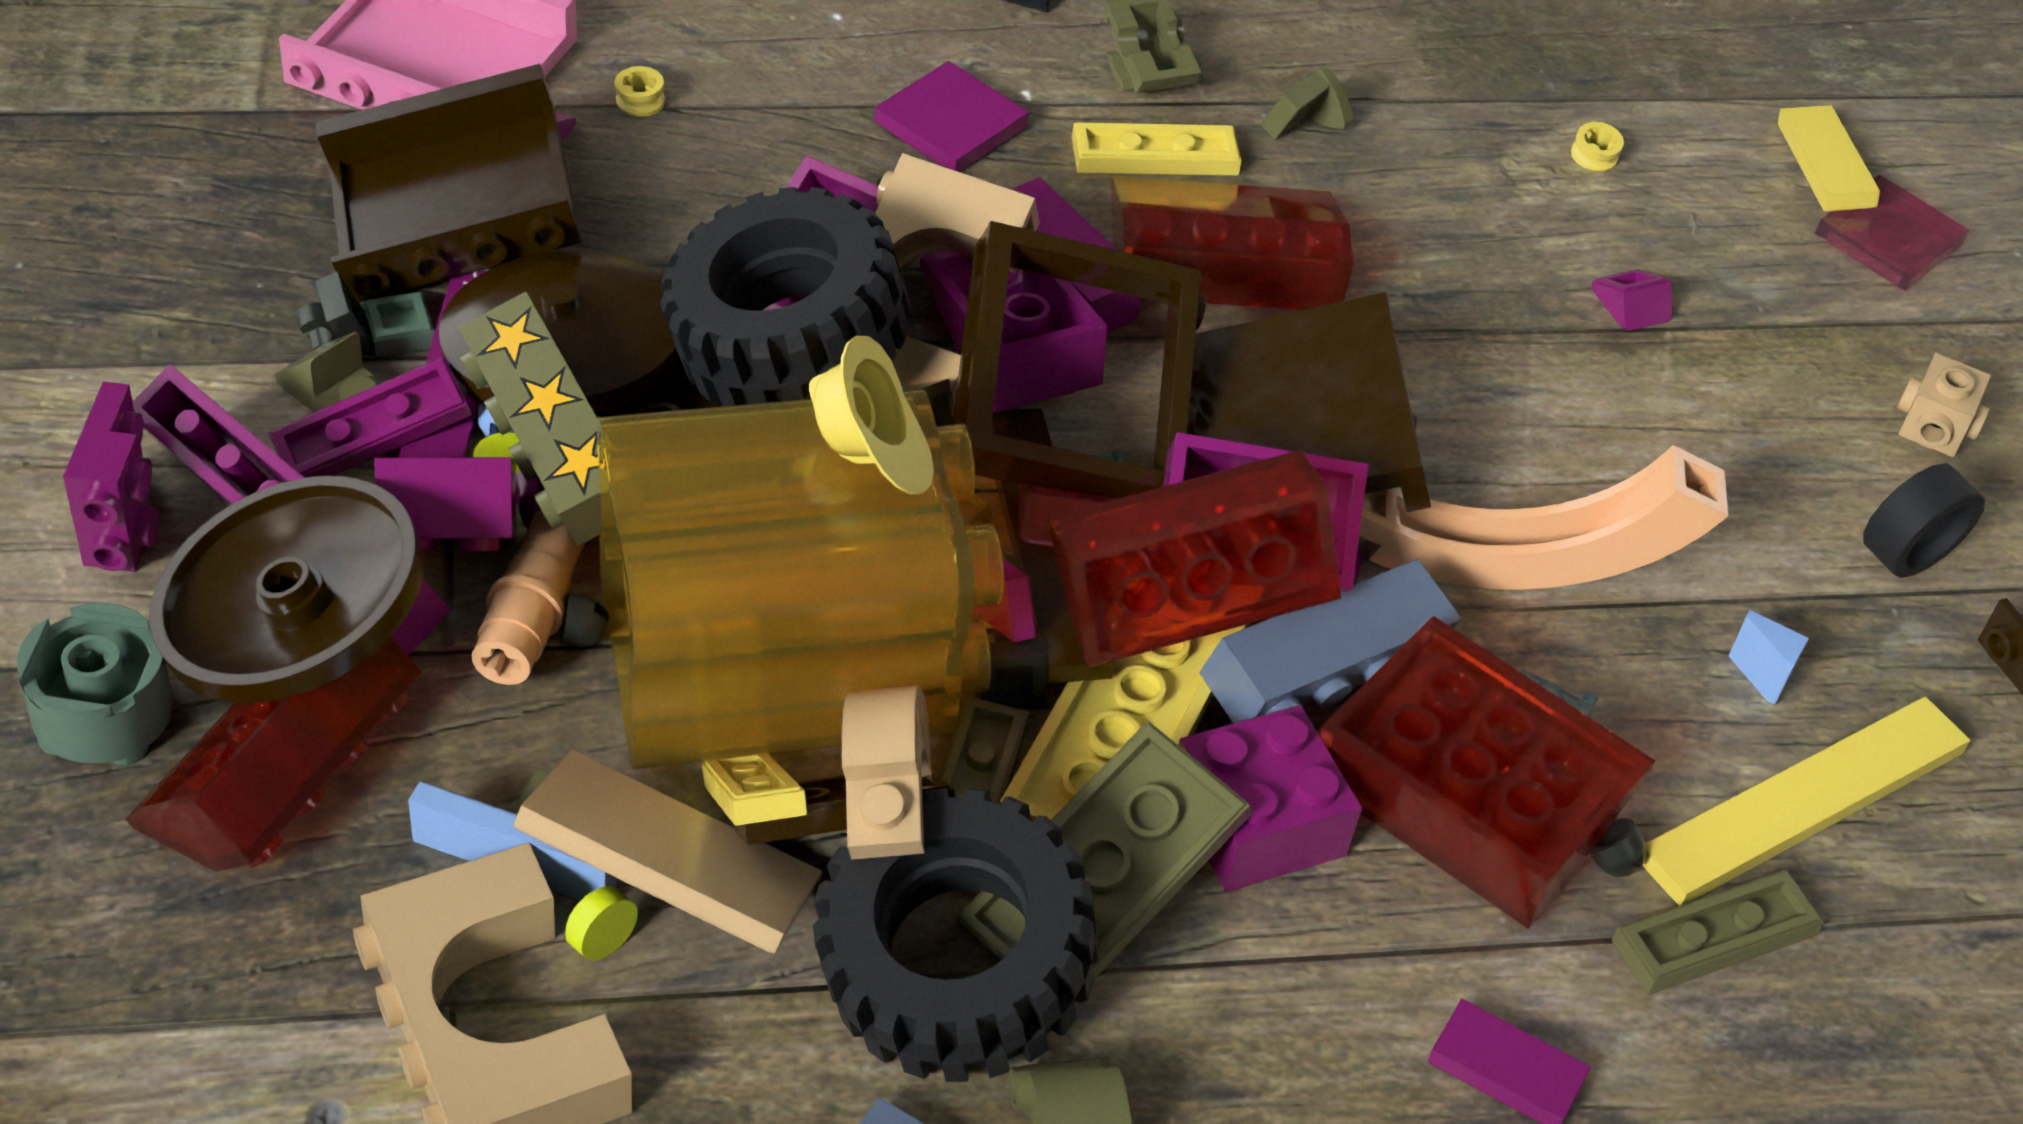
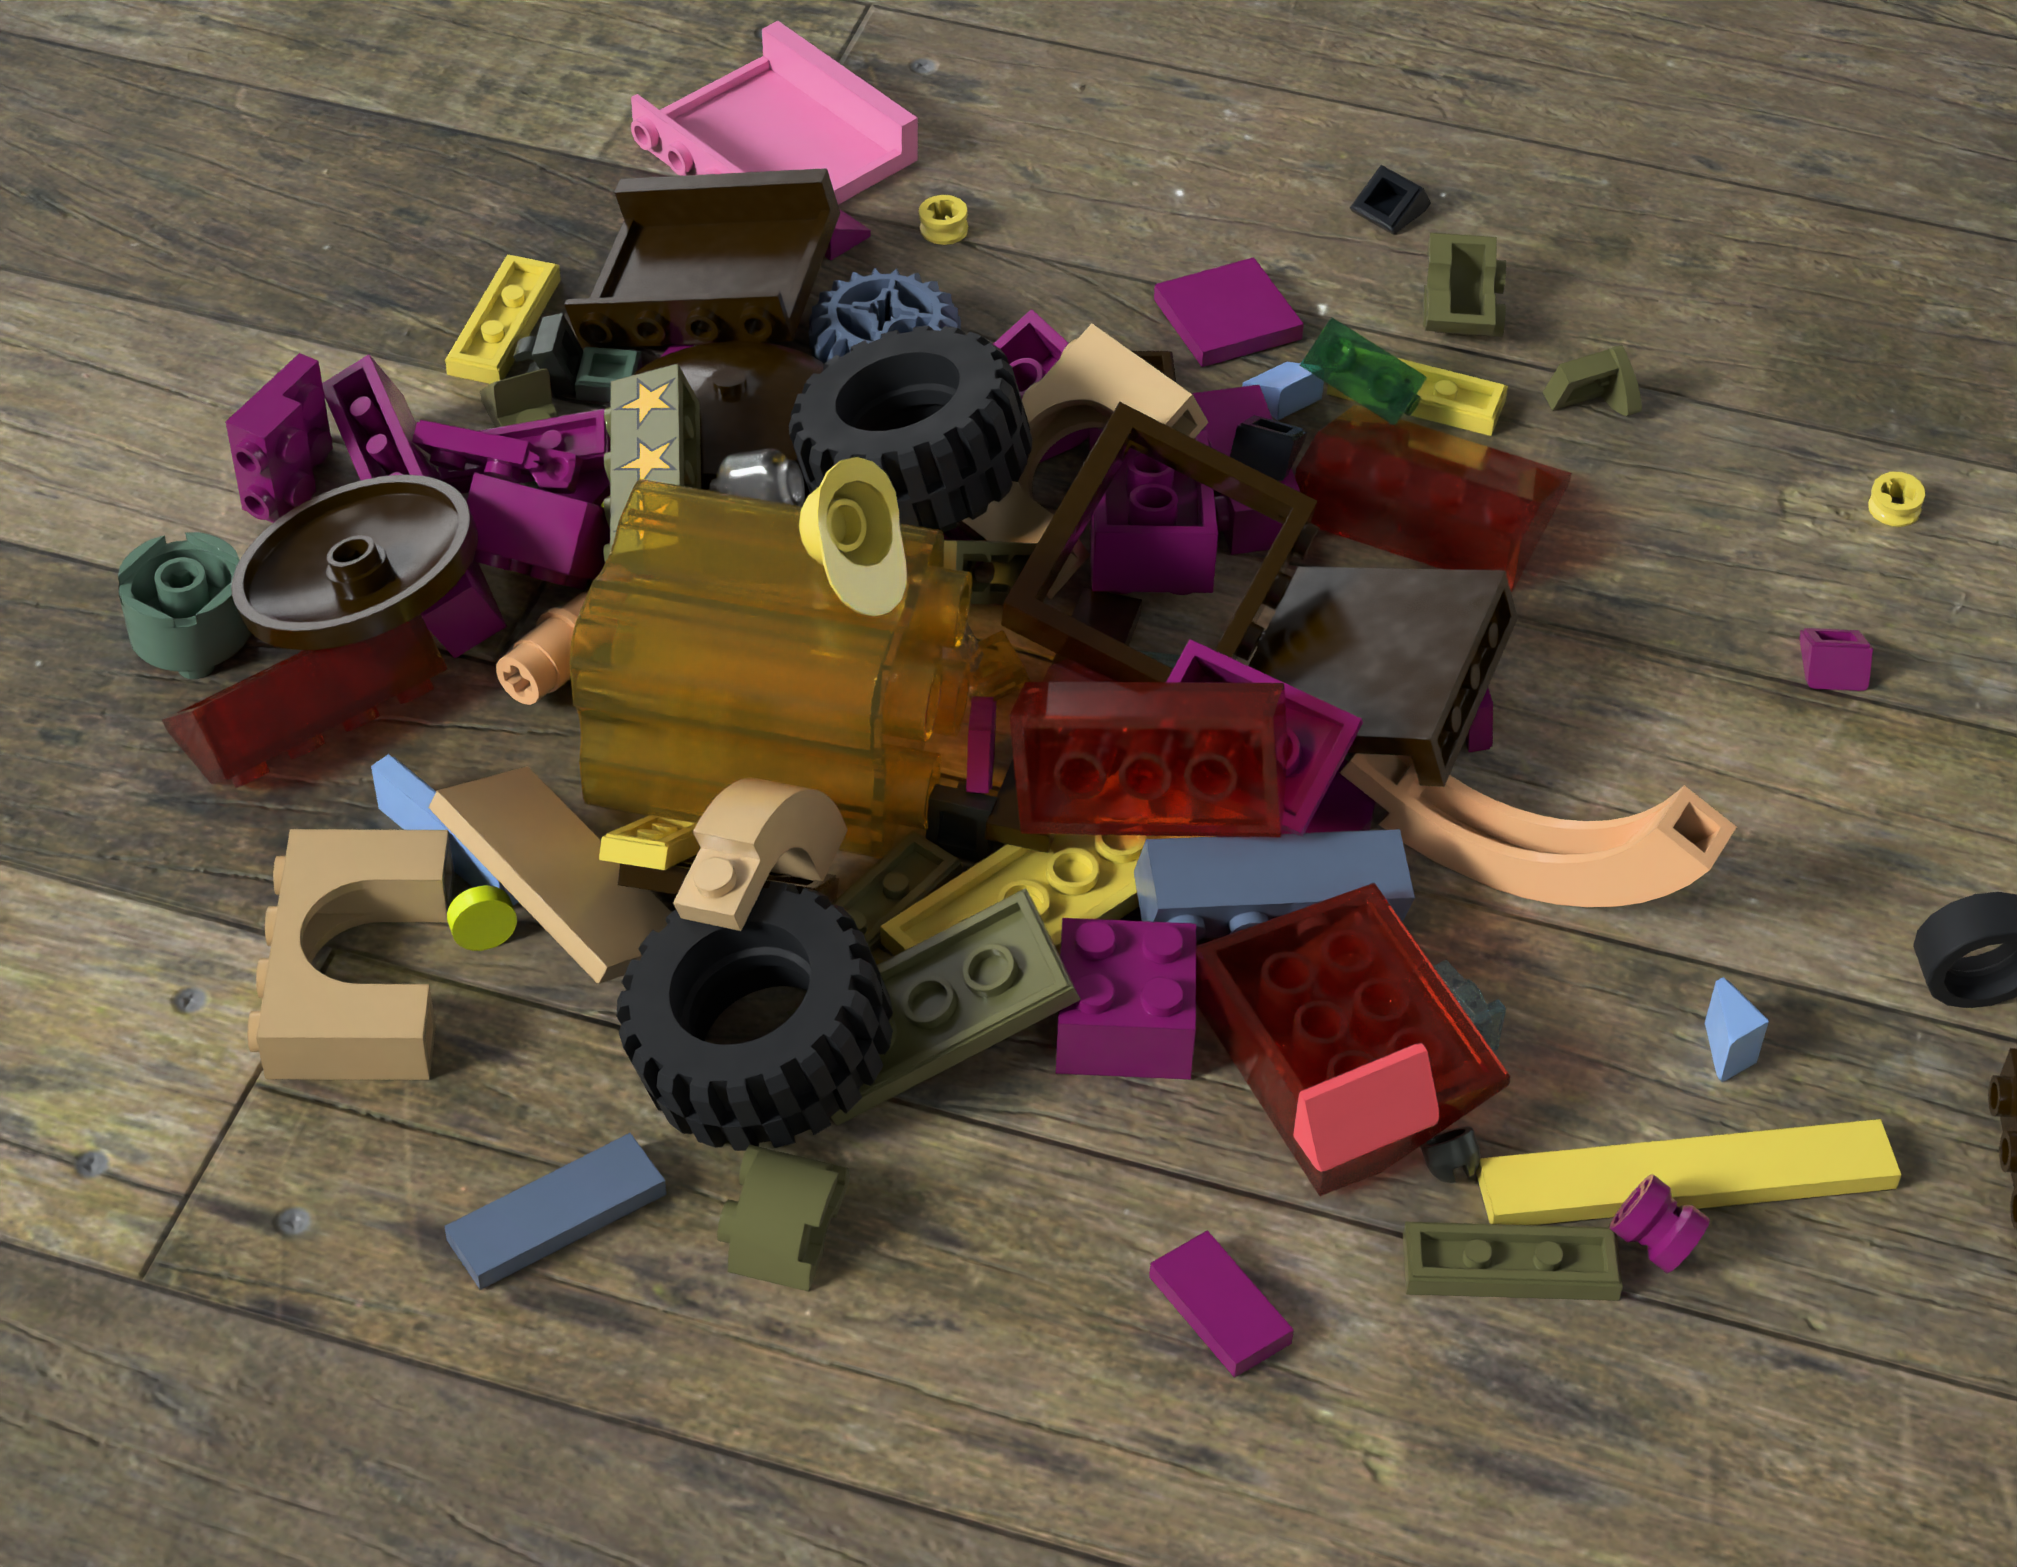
camera: 30 degrees right, 0 degrees up
(257, 295) = (502, 318): none -> light yellow tile
(363, 434) = (500, 455): none -> magenta hinge
(647, 205) = (873, 307): none -> sand blue gear
(652, 386) = (761, 475): none -> clear head
(1055, 166) = (1288, 388): none -> light blue slope
(1088, 225) = (1267, 446): none -> black slope
(1122, 142) = (1364, 372): none -> clear green hinge
(1573, 835) = (1366, 1108): none -> coral slope
(1818, 848) = (1657, 1221): none -> magenta wheel

